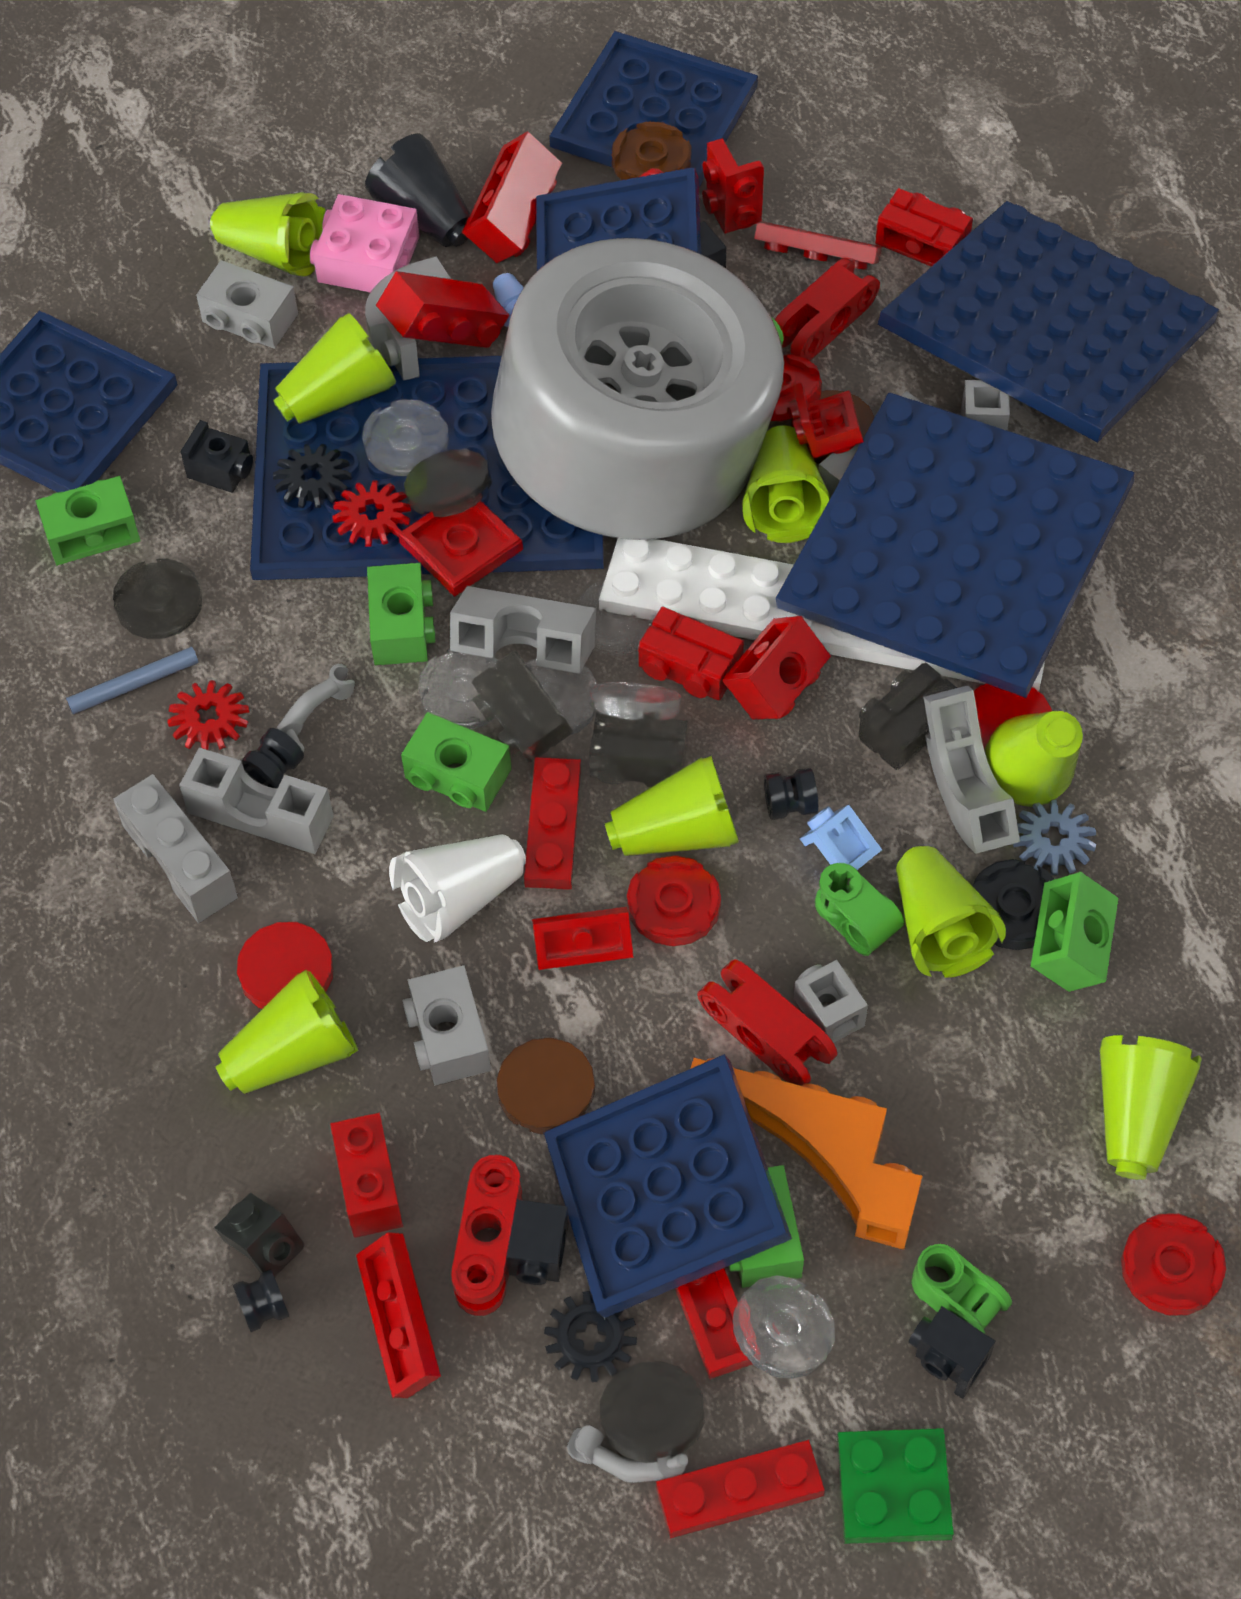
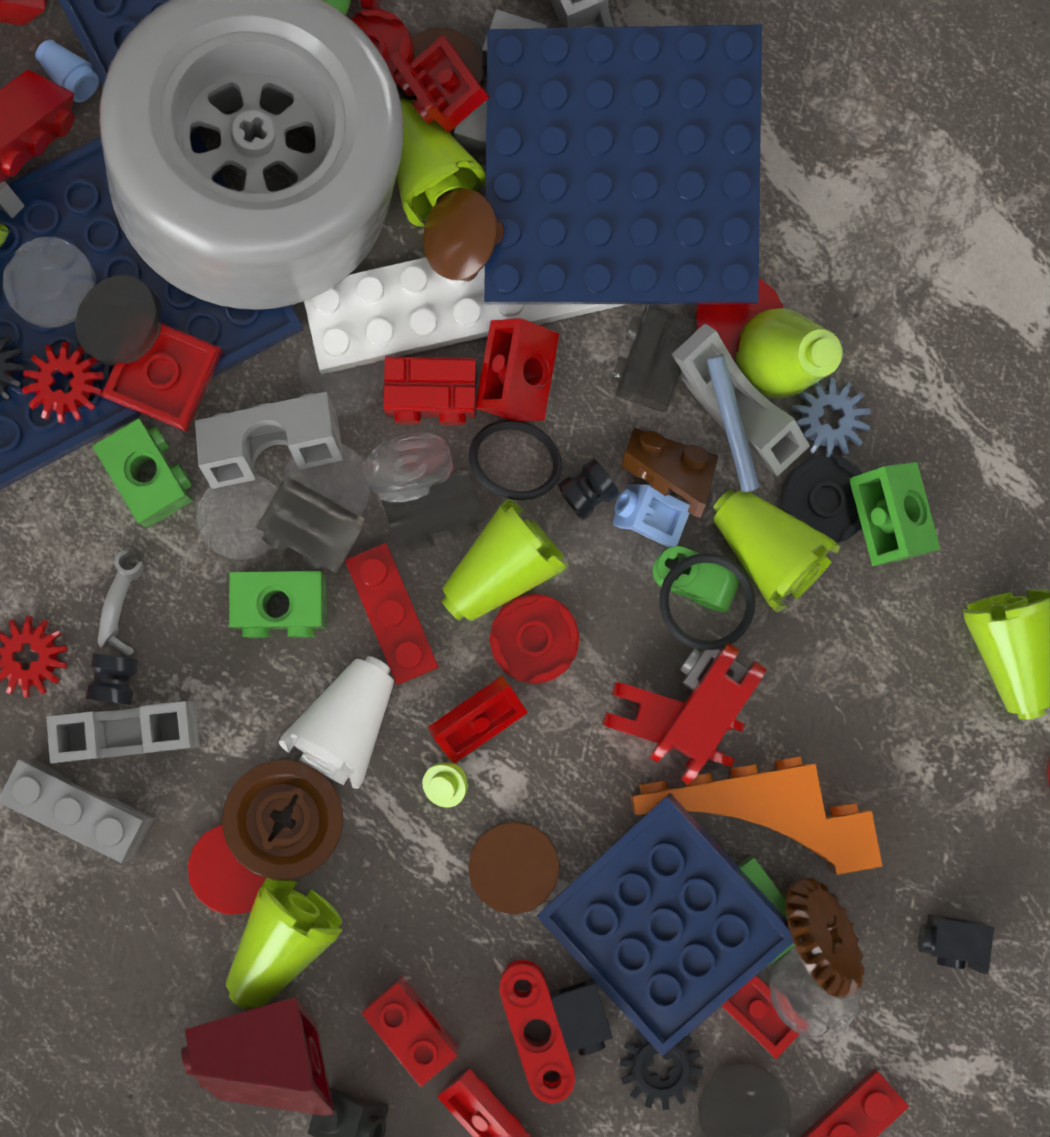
camera: 25 degrees left, 25 degrees up
(214, 1119) = (262, 1059): none -> dark red slope
(362, 913) = (269, 790): none -> reddish brown gear
(447, 998) = (431, 870): light grey brick -> none
(521, 980) = (445, 784): none -> plate
(750, 720) = (496, 489): none -> black tyre
(782, 538) = (461, 234): none -> reddish brown dish
(804, 1005) = (709, 712): none -> red piece
(816, 1265) = (824, 938): none -> reddish brown gear
(839, 958) = (665, 609): none -> black tyre
(867, 795) = (671, 467): none -> reddish brown wing
(894, 1486) = (959, 1071): green plate -> none
(953, 781) = (733, 423): none -> sand blue bar
(963, 1291) = (945, 889): bright green piece -> none

